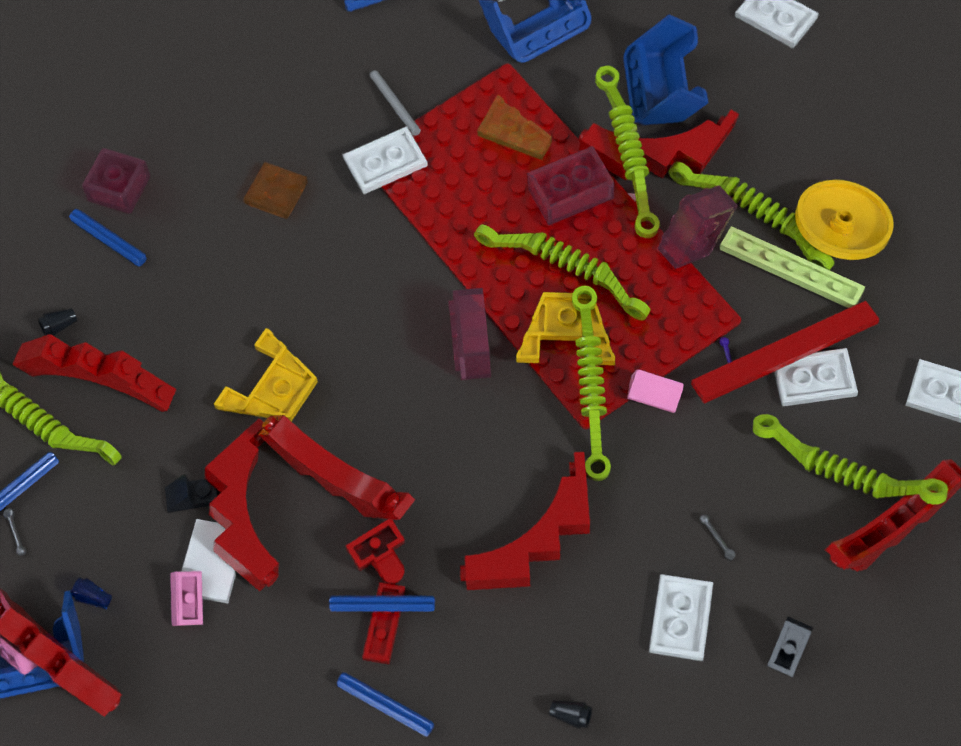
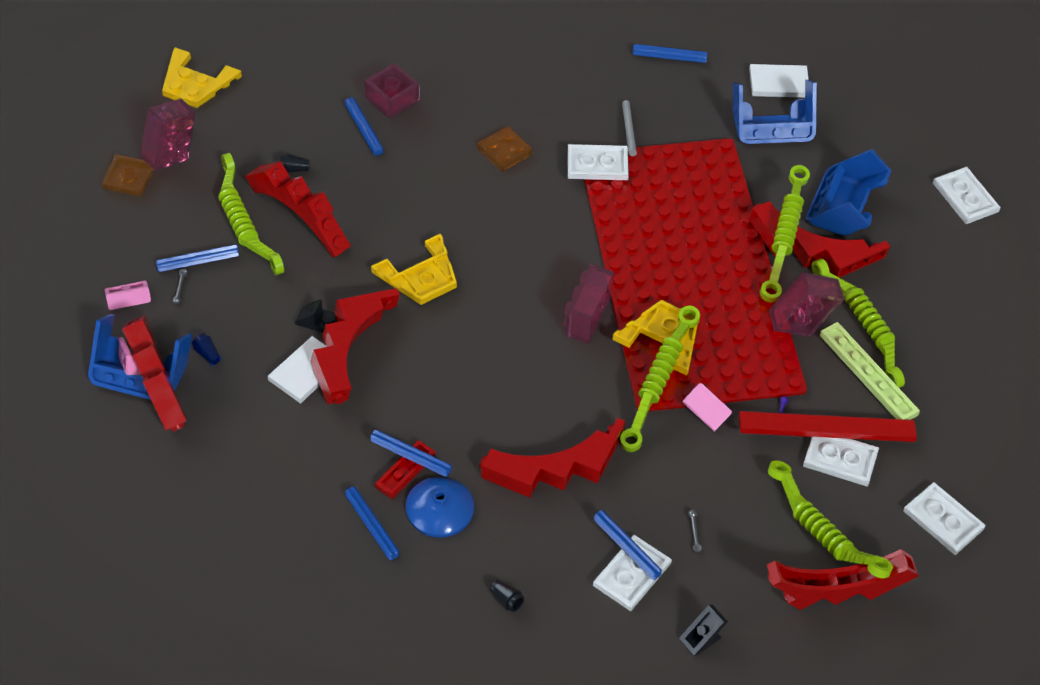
camera: 20 degrees right, 10 degrees down
(186, 598) = (272, 383): bright pink slope -> none
(365, 493) = (442, 369): red arch -> none
(378, 549) = (430, 415): red brick -> none
(448, 662) = (437, 516): none -> blue dish
(512, 130) = (706, 182): clear yellow wing -> none
(537, 242) = (692, 284): lime piece -> none
(570, 185) = (726, 236): clear pink brick -> none
(662, 590) = (628, 545): none -> axle
(844, 219) = (930, 355): yellow dish -> none

